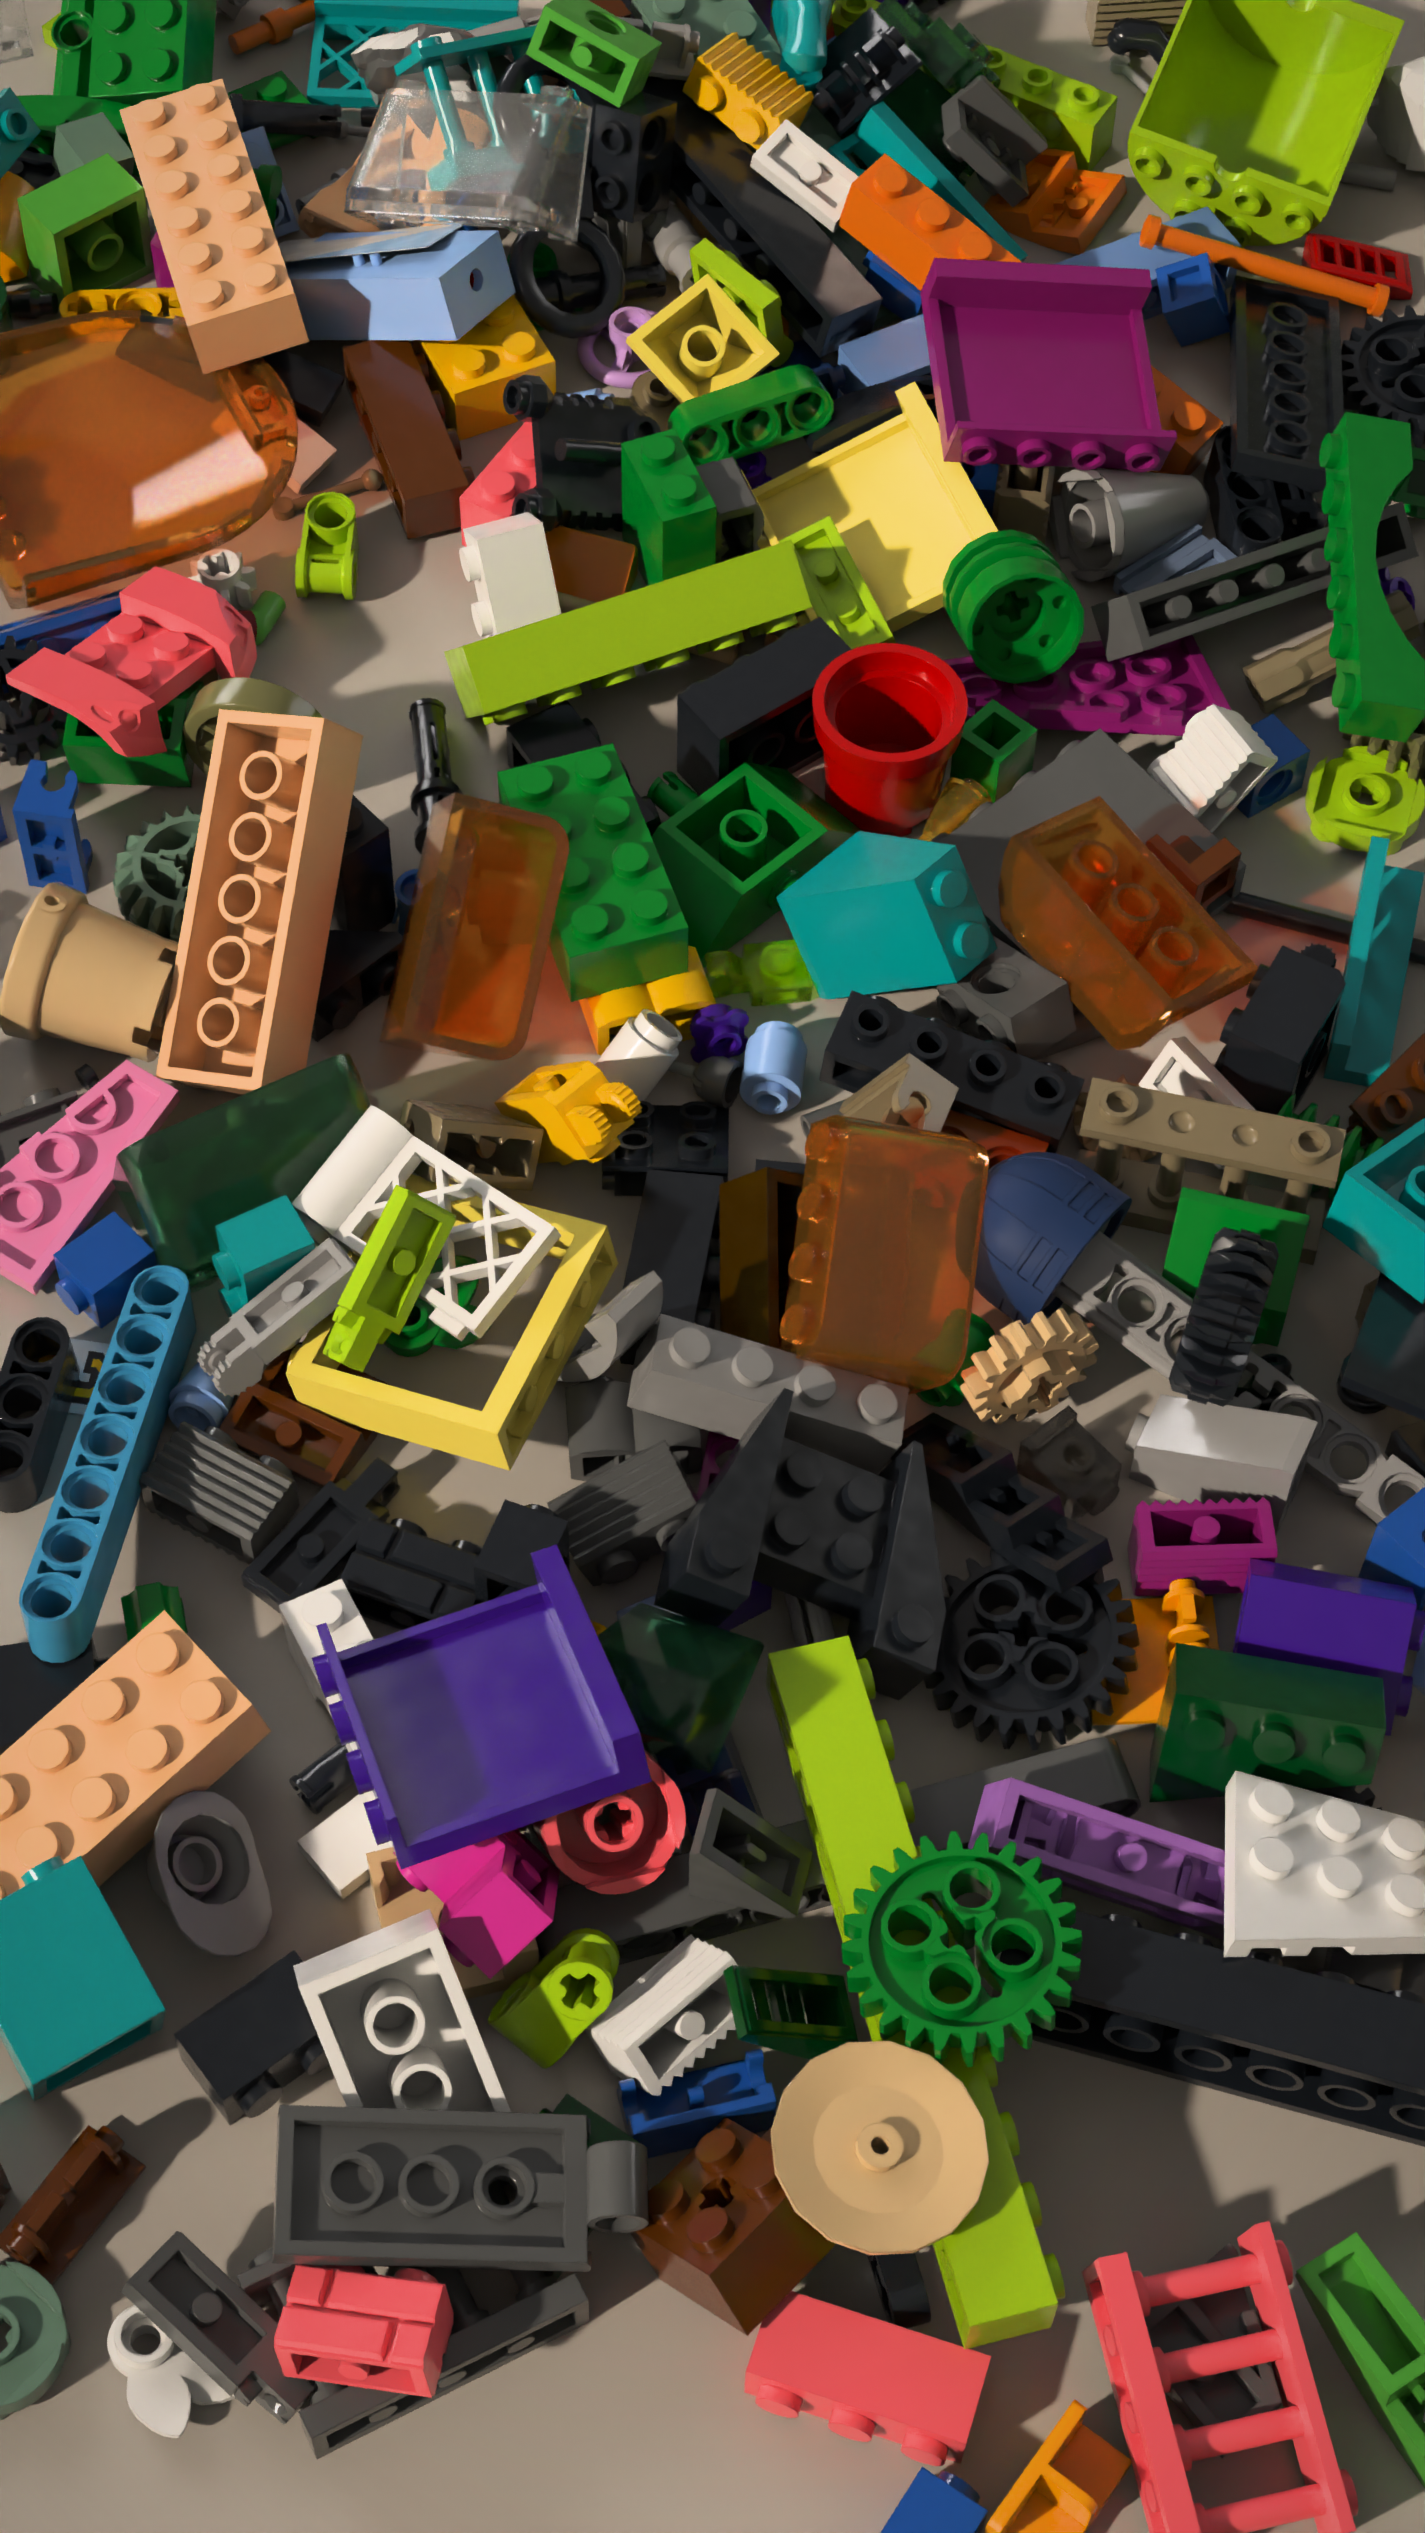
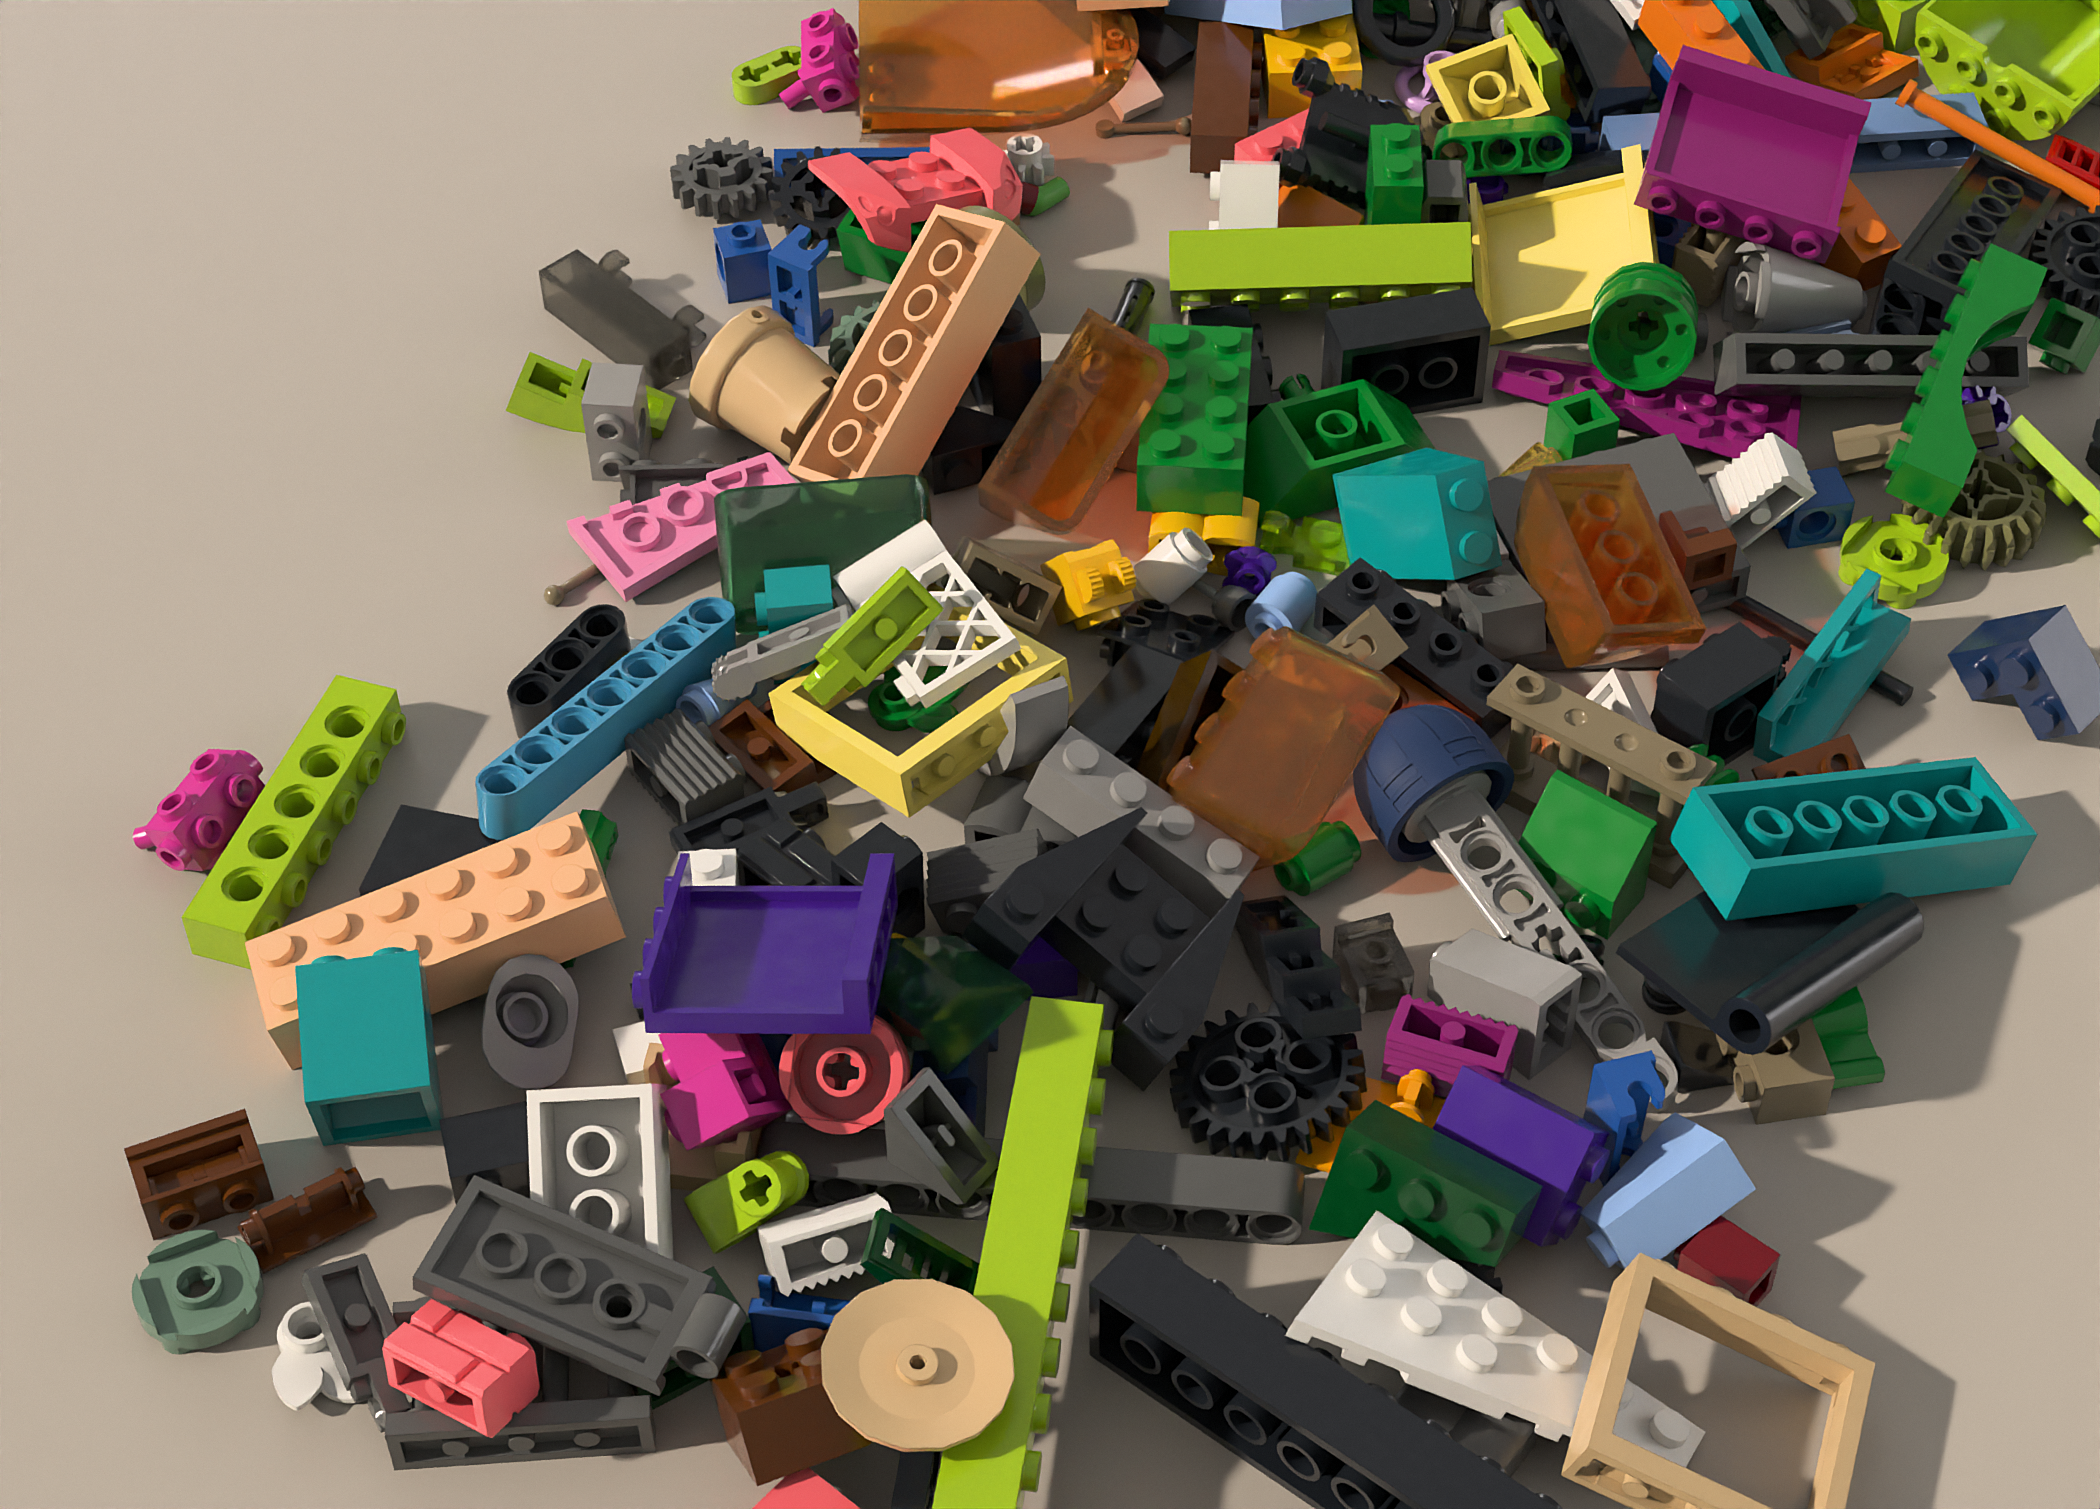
camera: 25 degrees right, 10 degrees down
(100, 1267) = (676, 585): blue brick -> none
(328, 547) = (1120, 159): lime piece -> none
(837, 586) = (1509, 288): lime plate -> none
(887, 733) = (1489, 385): red piece -> none
(905, 1978) = (1112, 1234): green gear -> none
(1029, 1366) = (1370, 872): tan gear -> none
(1107, 1854) = (1229, 1235): medium lavender brick -> none
(1193, 299) = (1927, 156): blue brick -> none
(1224, 1316) = (1538, 869): black gear -> none

